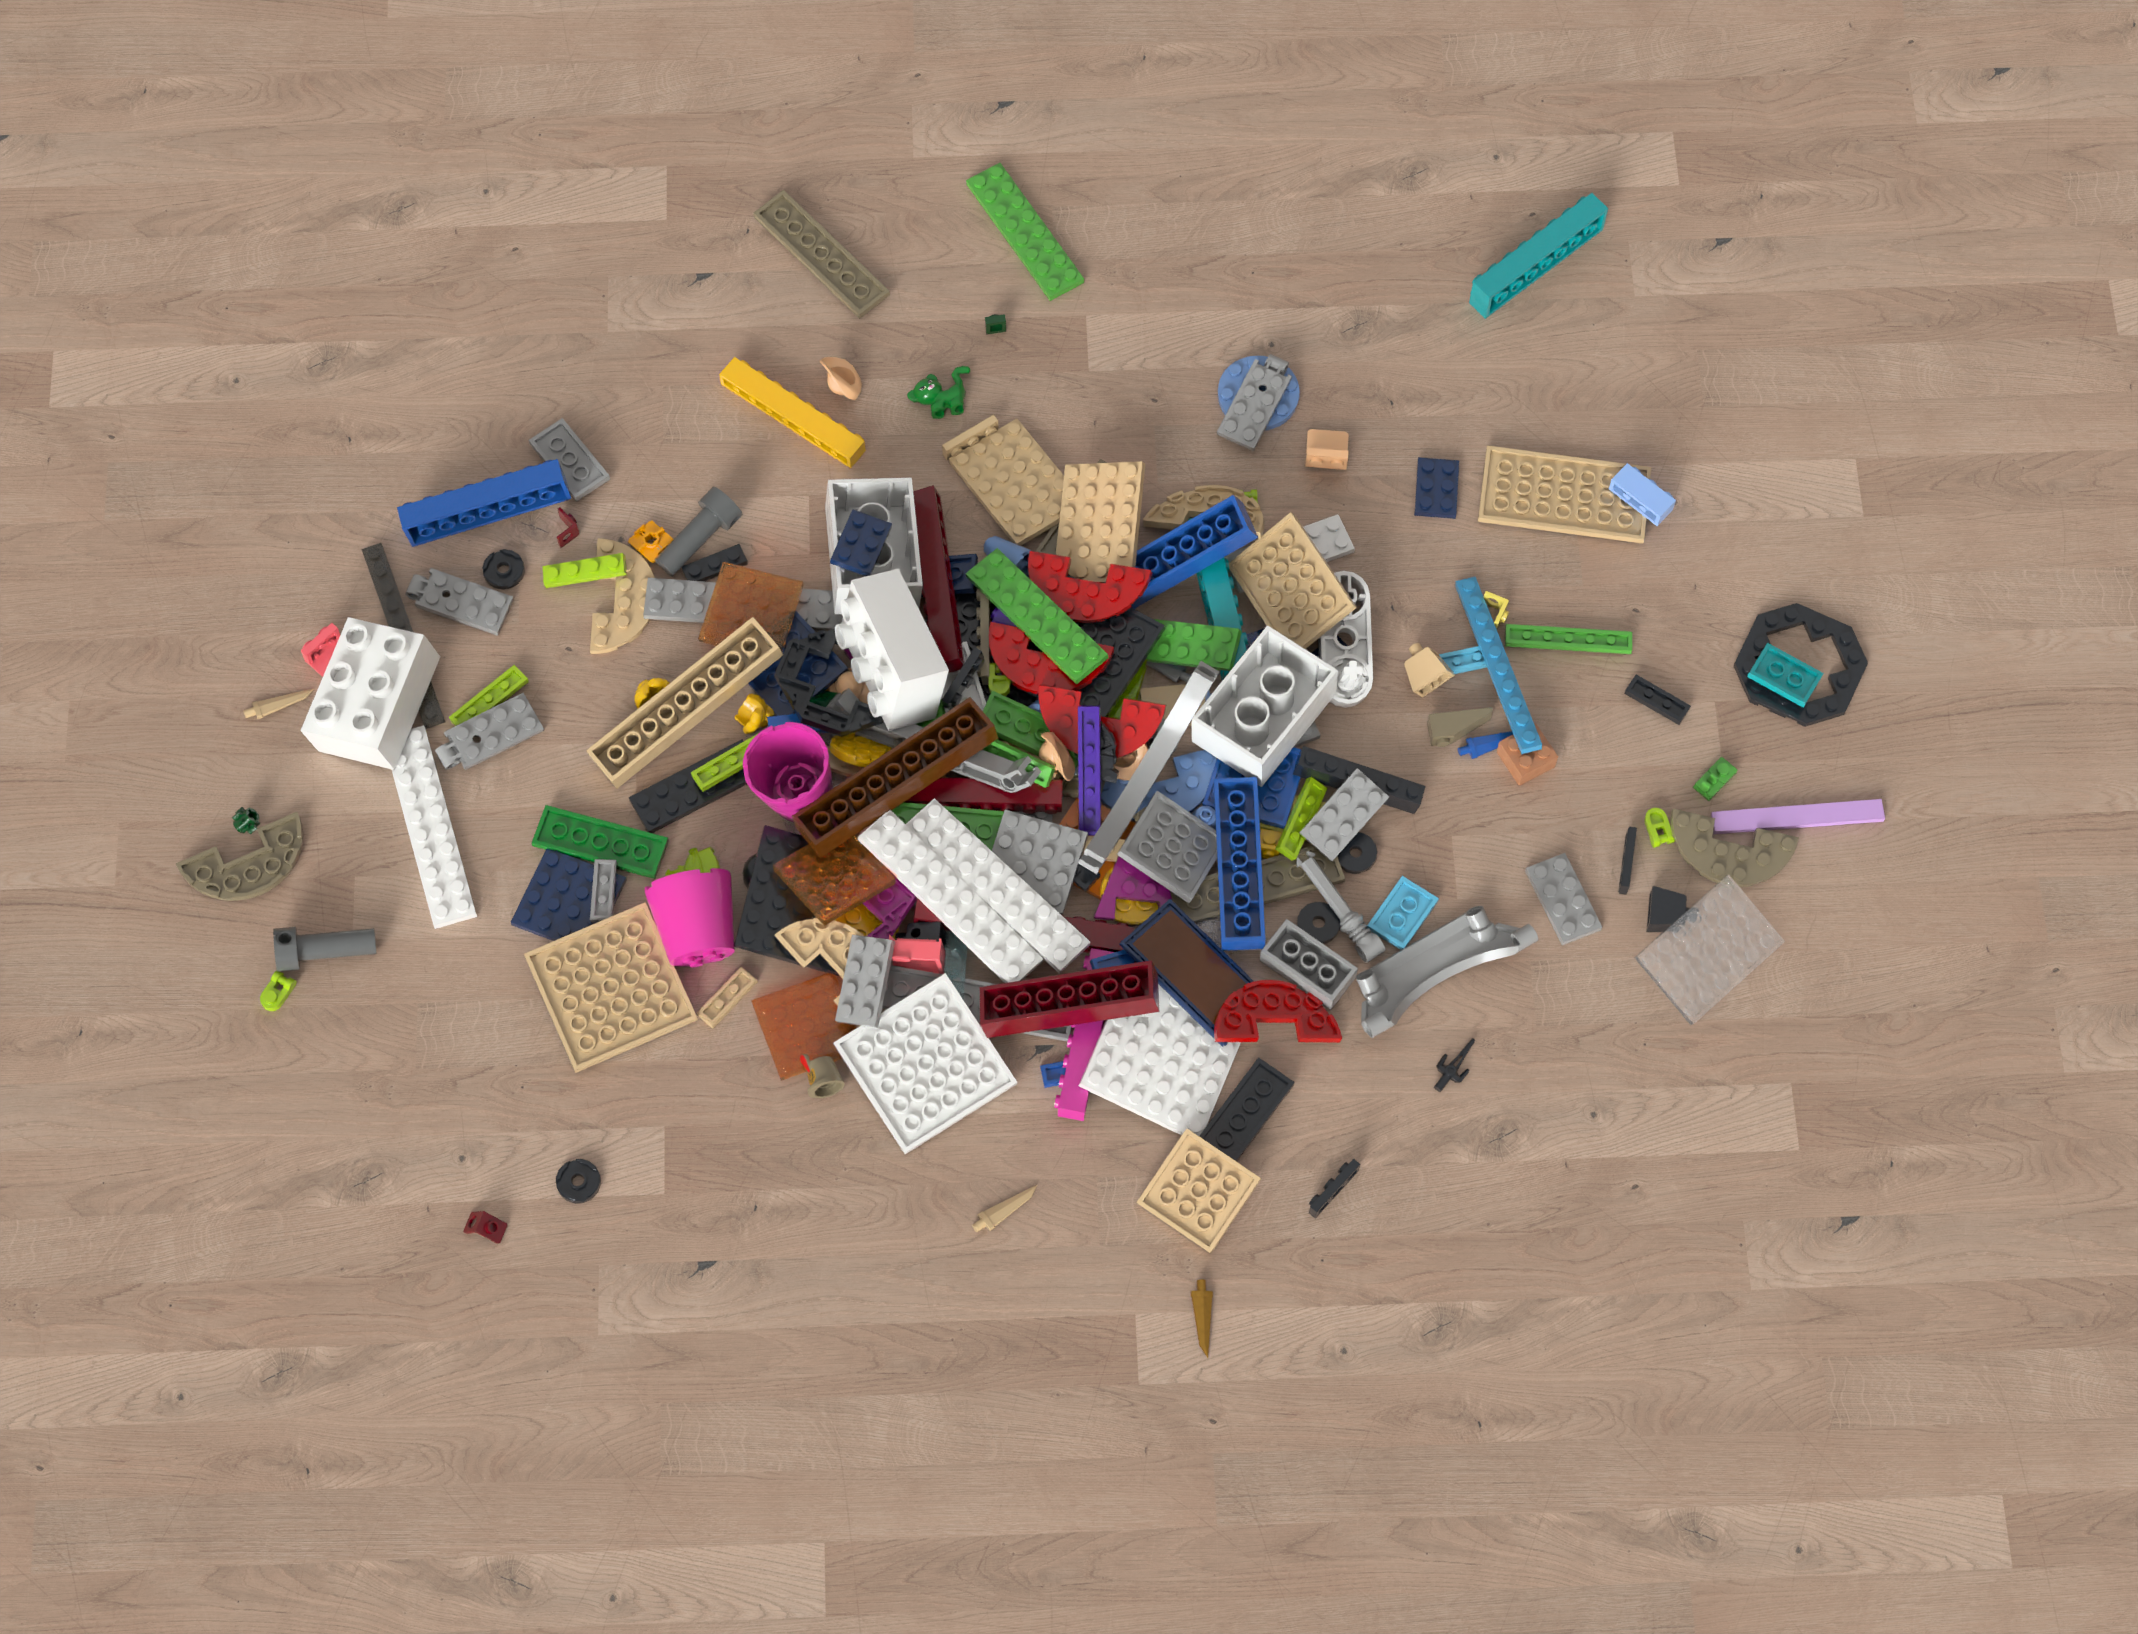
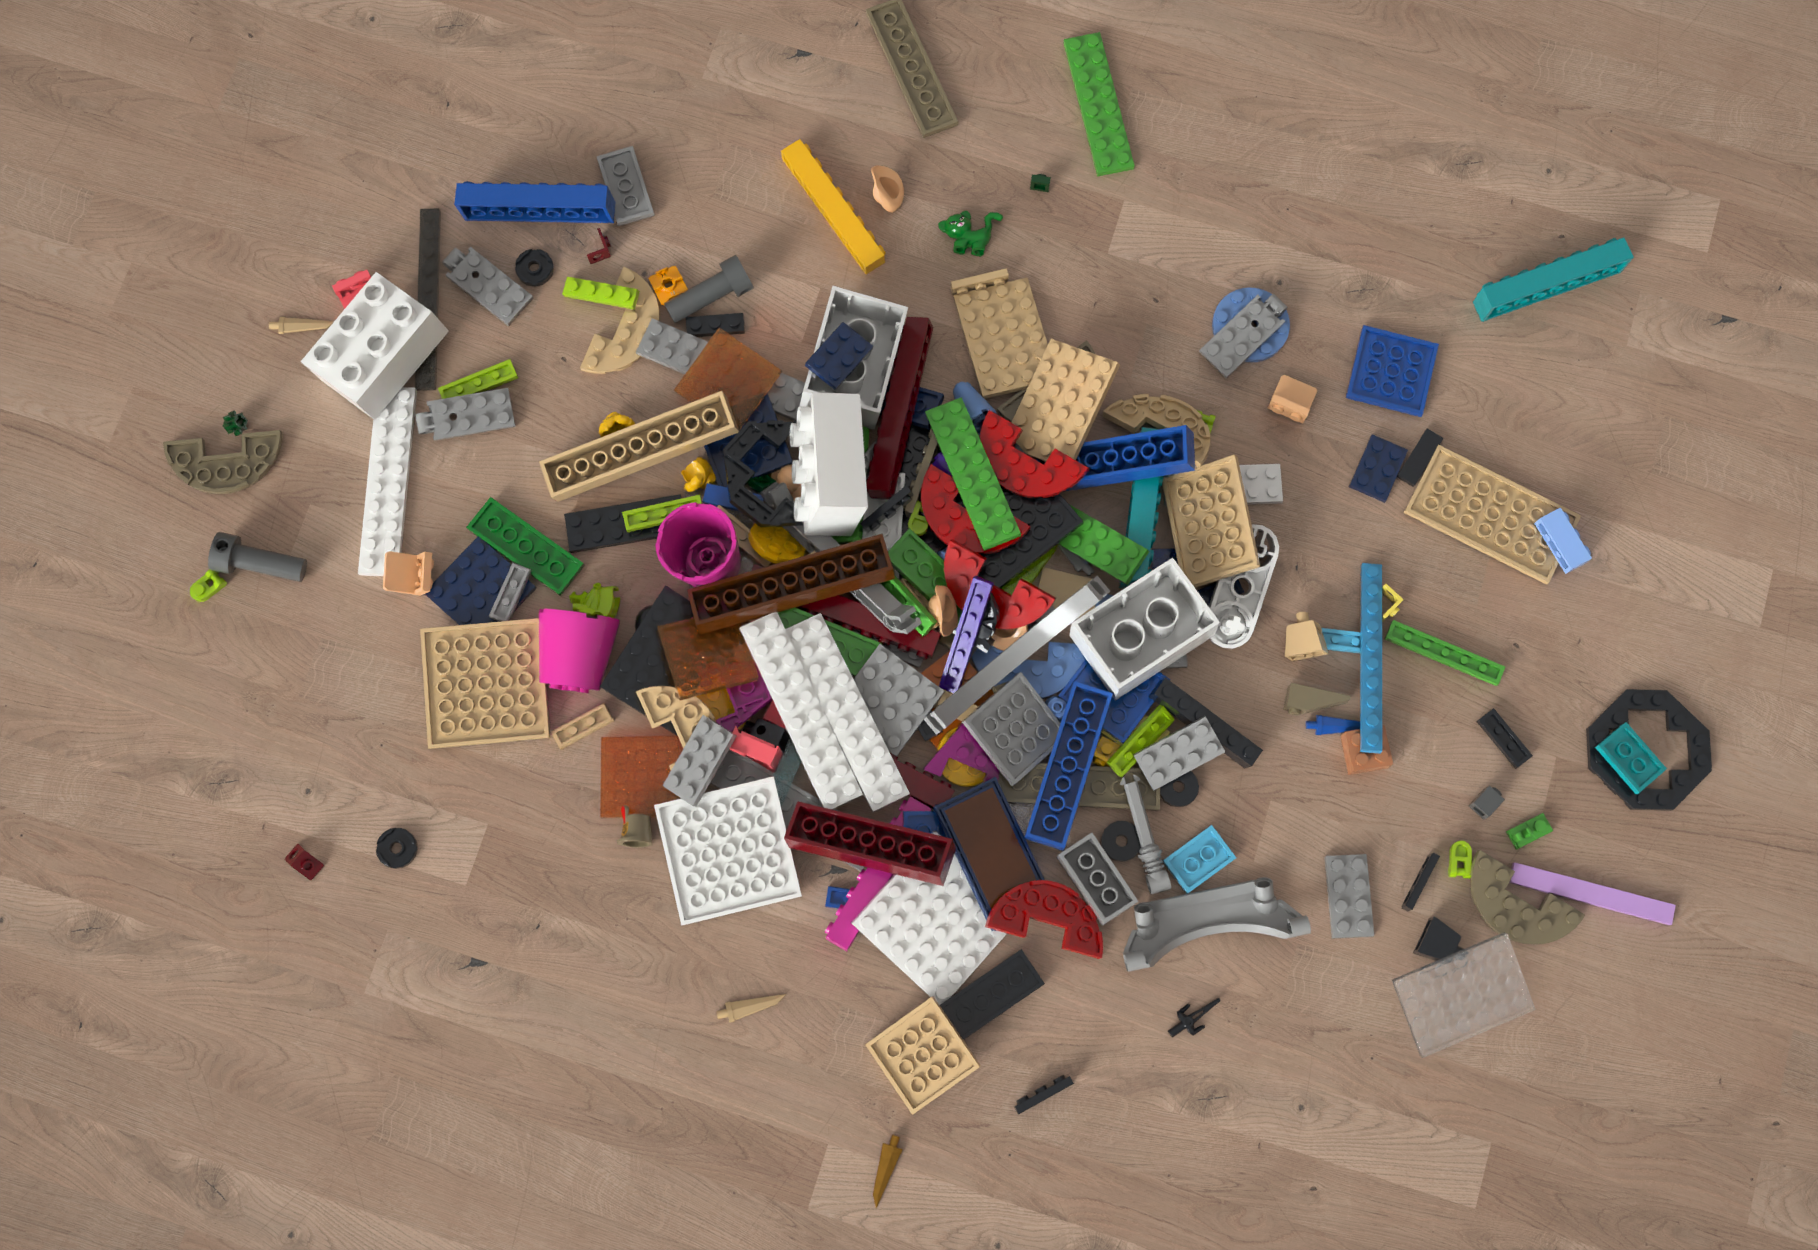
camera: 20 degrees right, 10 degrees up
(489, 906) = (408, 573): none -> light nougat bracket
(1415, 391) = (1392, 371): none -> blue plate
(1473, 464) = (1420, 457): none -> black tile
(1663, 764) = (1487, 802): none -> dark grey brick

